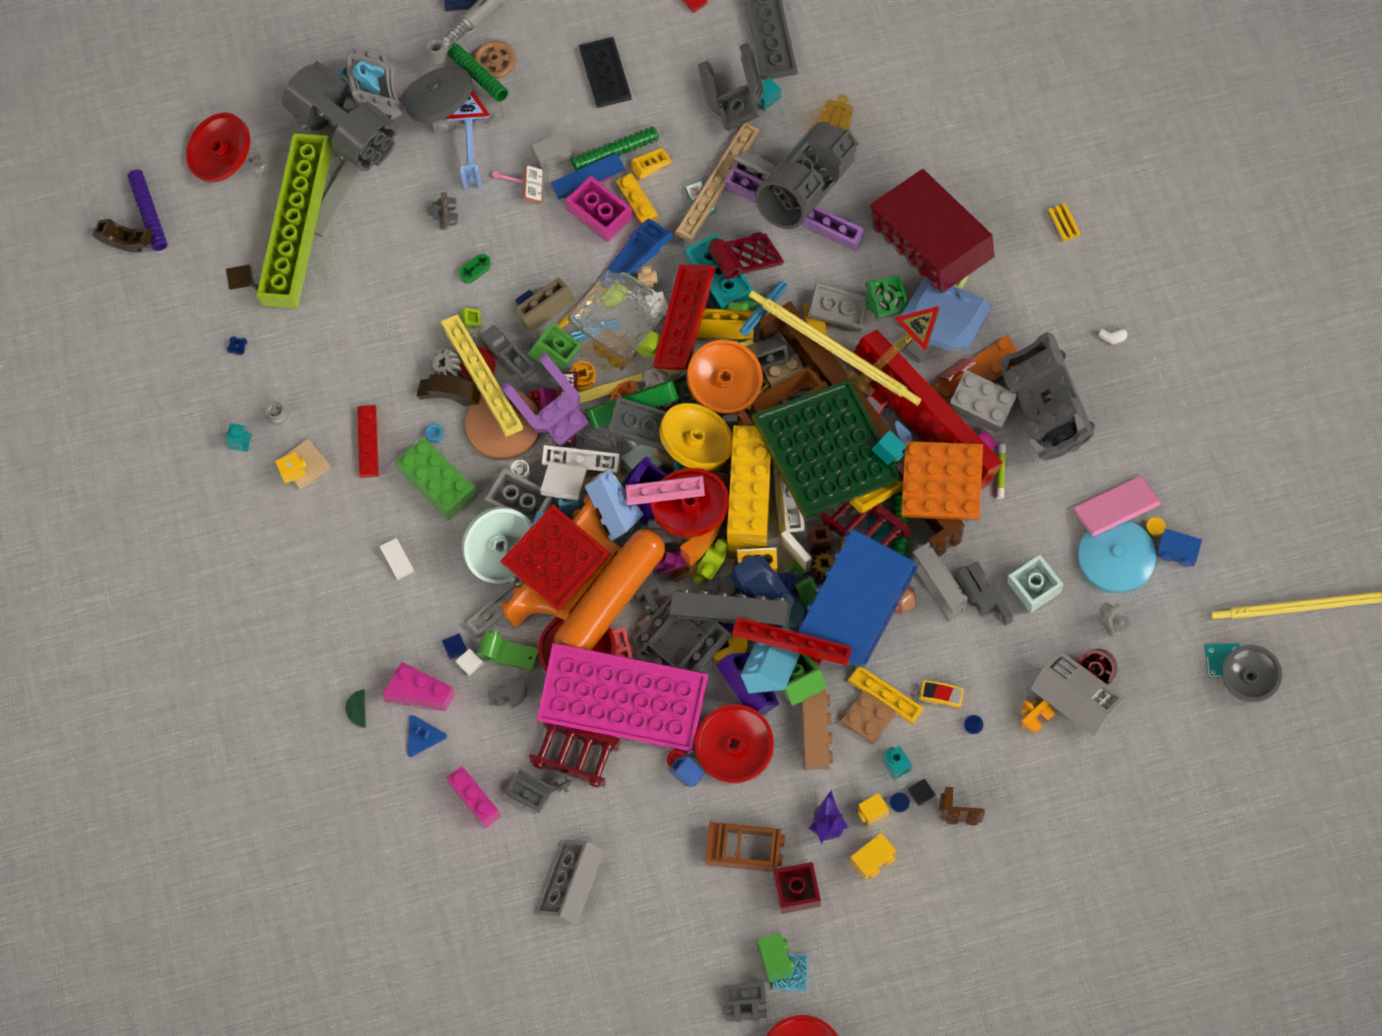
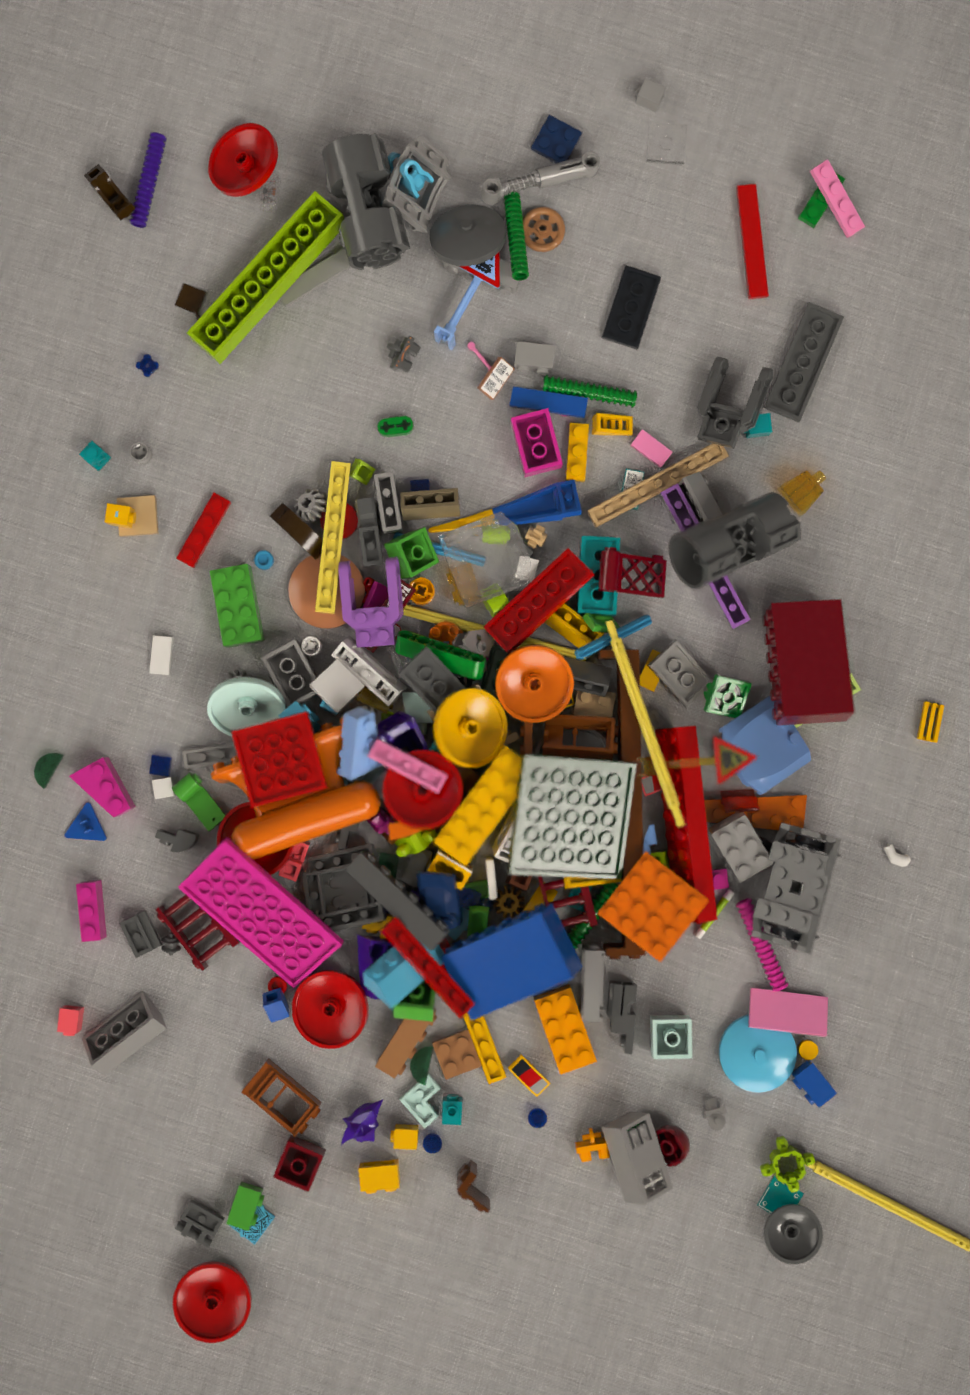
camera: 30 degrees right, 20 degrees up
(509, 324) = (388, 503): none -> light grey brick
(515, 900) = (70, 1020): none -> coral brick
(694, 161) = (651, 448): none -> bright pink tile
(843, 743) = (420, 1064): none -> clear green tile
(862, 778) = (416, 1101): none -> light aqua tile
(889, 448) = (627, 849): teal brick -> none
(921, 792) = (456, 1146): black tile -> none
(943, 635) = (564, 1029): none -> light orange brick
(1057, 469) = (763, 948): none -> dark pink piece
(1216, 615) = (790, 1178): none -> lime piece

